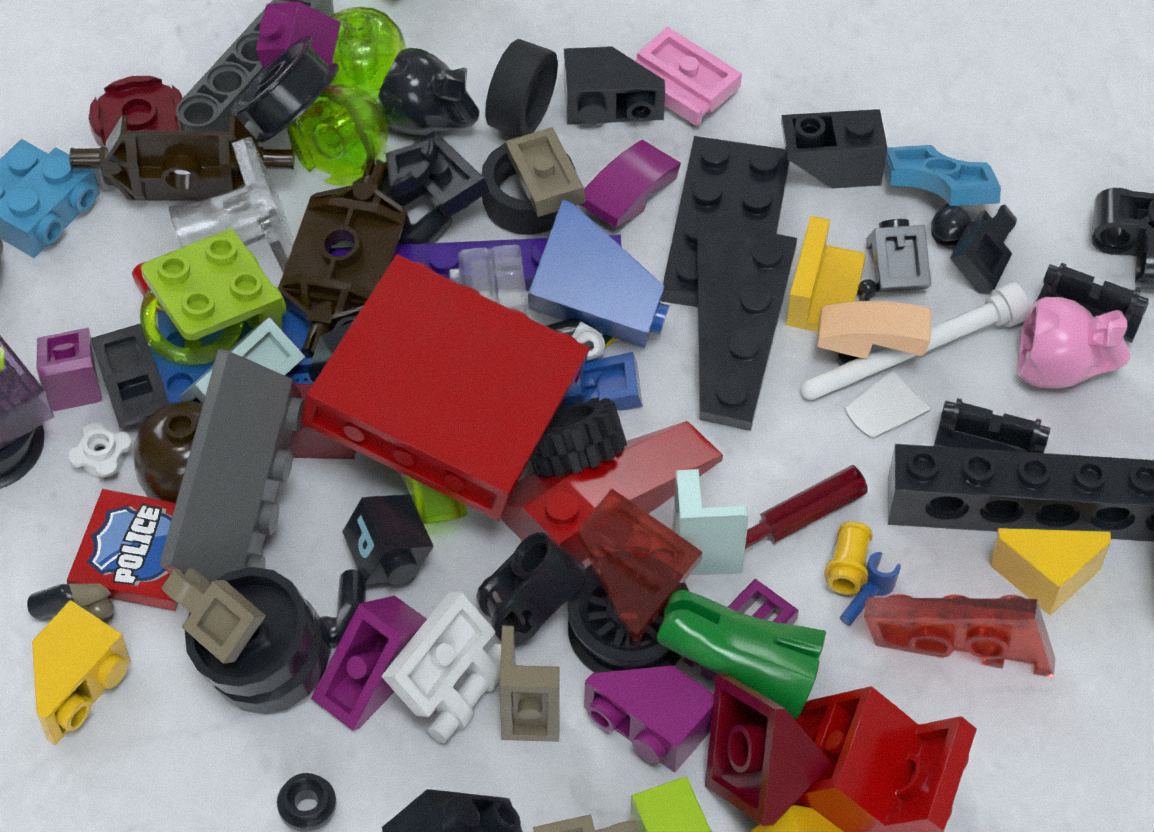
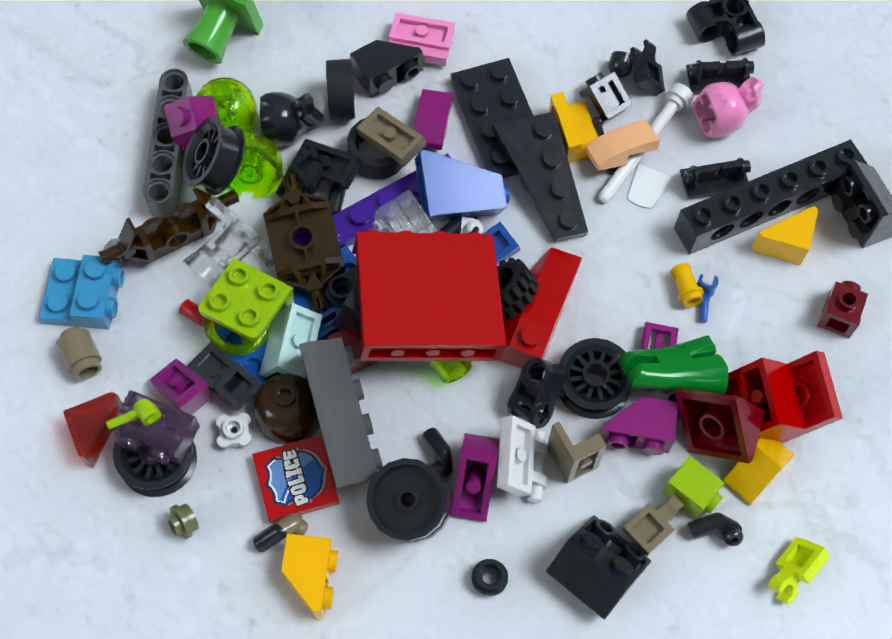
camera: 30 degrees left, 10 degrees up
(142, 99) = (110, 205): dark red tile -> none
(219, 613) = (393, 503): dark tan plate -> none
(387, 539) = (439, 402): black brick -> none
(635, 560) = (589, 346): clear red wing -> none
(713, 530) = (604, 312): light aqua panel -> none
(808, 506) = (643, 270): dark red axle -> none
(837, 147) = (537, 43): black slope -> none
(950, 178) = (588, 36): dark azure tile -> none
(983, 627) = (782, 293): clear red wing -> none
(1069, 700) = (843, 308): none -> dark red brick

